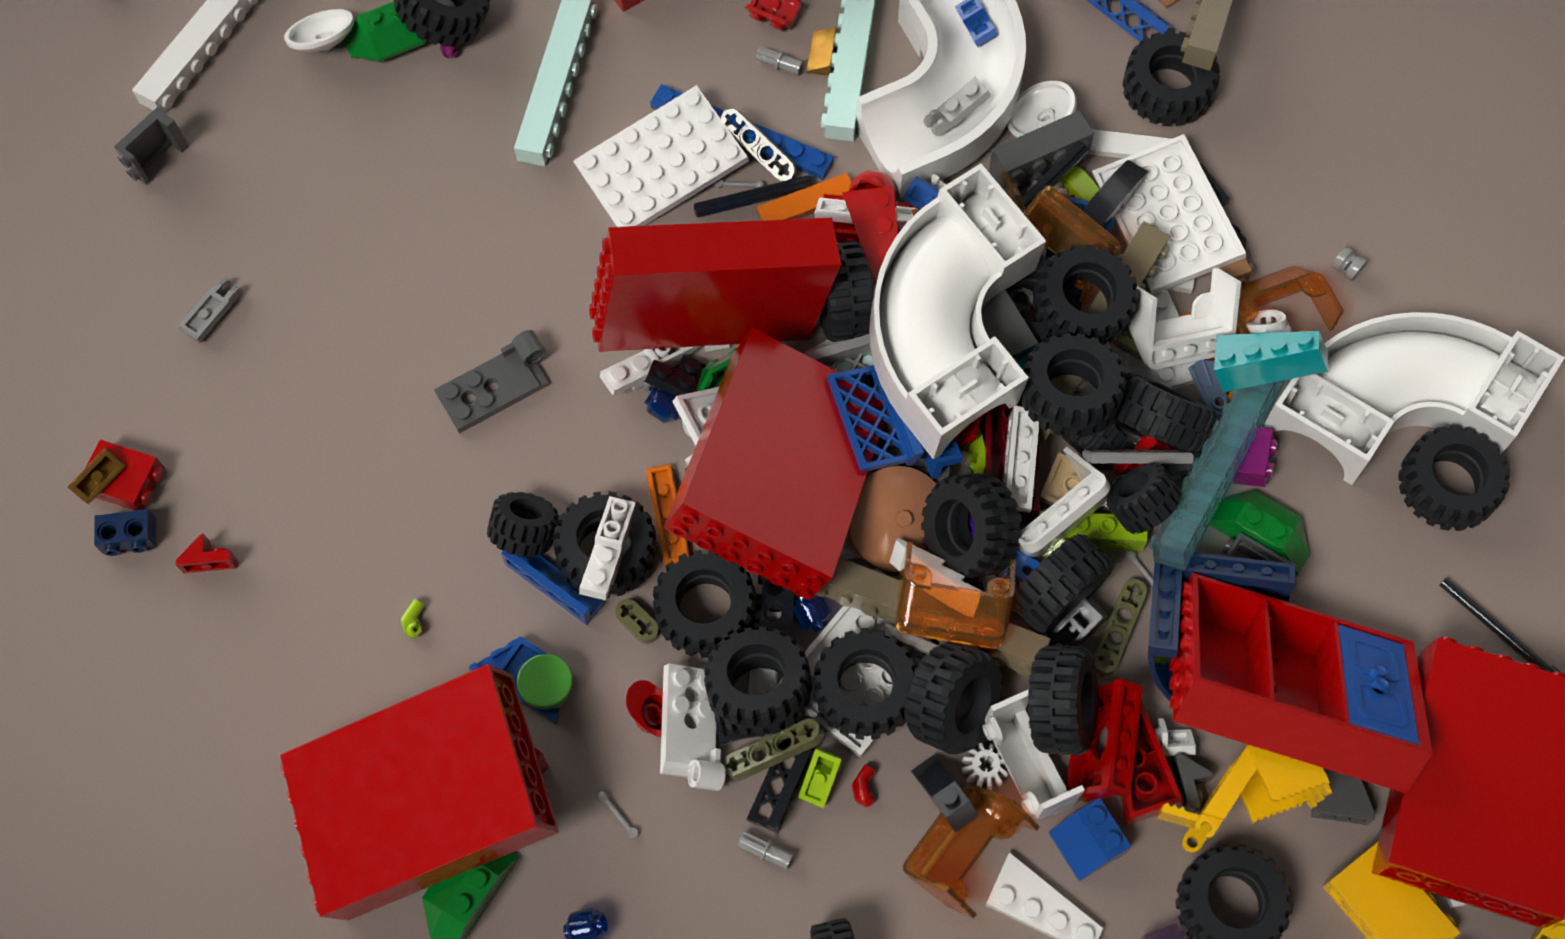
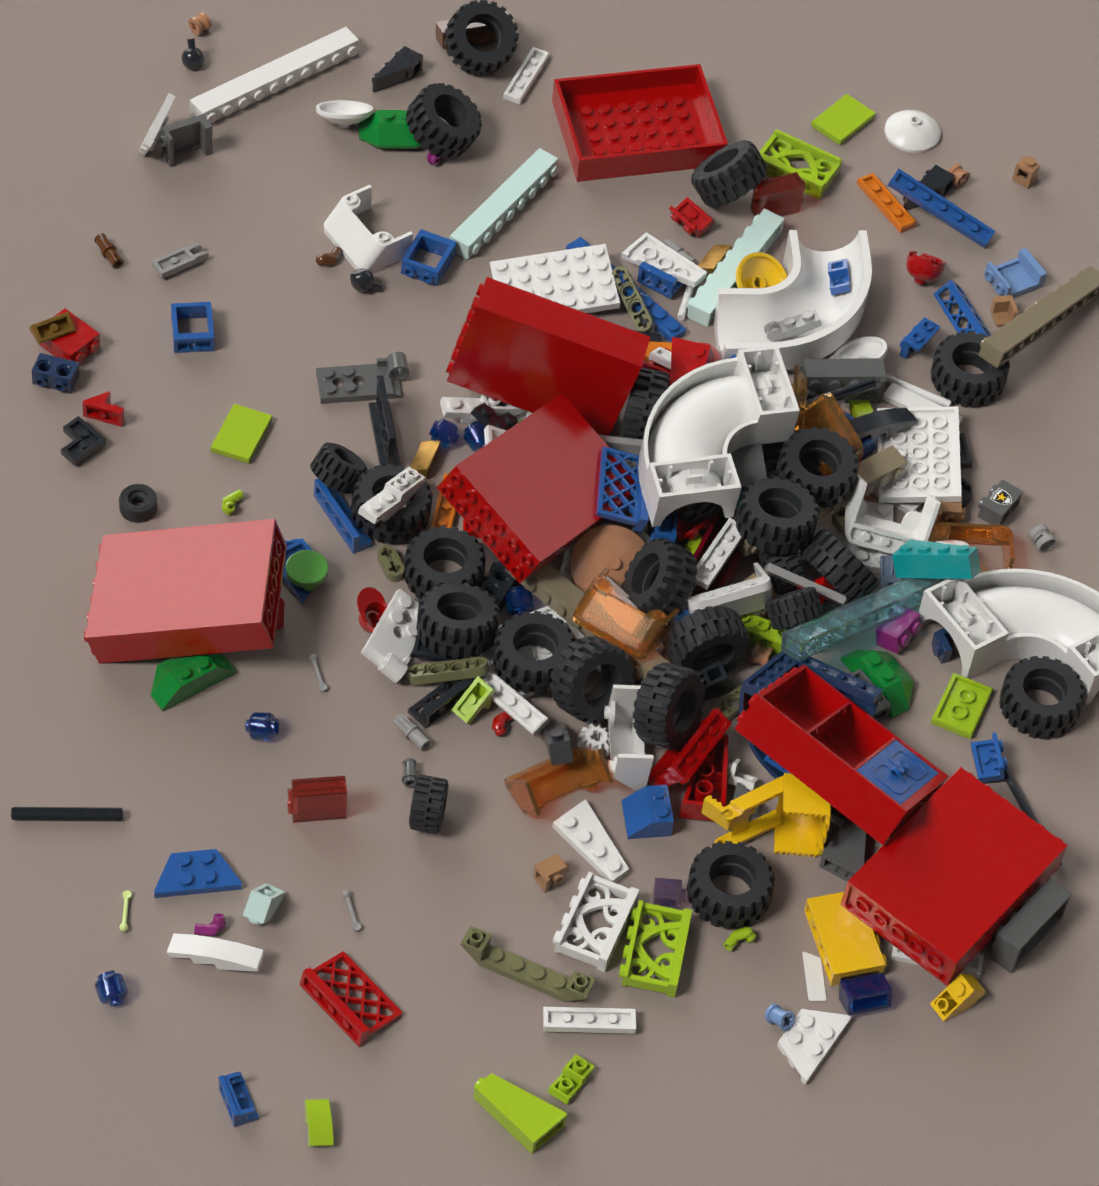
camera: 15 degrees right, 15 degrees down
(108, 140) = (156, 130): none -> white wing
(111, 28) = (192, 57): none -> black piece
(120, 331) = (109, 251): none -> reddish brown pin
(202, 611) = (84, 443): none -> black plate
(273, 416) = (184, 341): none -> blue window
(297, 657) = (138, 513): none -> black tyre
(383, 517) = (241, 433): none -> lime tile
(386, 233) = (329, 259): none -> reddish brown arm
(420, 207) = (356, 241): none -> white windscreen
(439, 247) = (364, 280): none -> black piece
(500, 164) = (434, 244): none -> blue window
(551, 442) = (383, 427): none -> black fence
(613, 458) = (426, 457): none -> pearl gold slope
(622, 415) = (445, 432): none -> clear blue head
(769, 78) = (664, 258): none -> white wing
(776, 98) = (658, 280): none -> blue bracket
(788, 910) = (410, 773): none -> dark grey pin
(814, 112) = (682, 310): none -> white bar
(872, 762) = (516, 705): none -> white tile
(893, 49) = (759, 269): none -> yellow dish
(1097, 58) = (918, 337): none -> blue bracket
(1119, 557) = (761, 654): none -> nougat wheel
(1129, 128) = (924, 393): none -> white bar
(1282, 238) = (999, 503): none -> dark grey brick
(1308, 456) = (941, 646): none -> dark blue bracket
(1365, 524) = (961, 706): none -> lime tile
(1434, 586) = (988, 759): none -> blue bracket

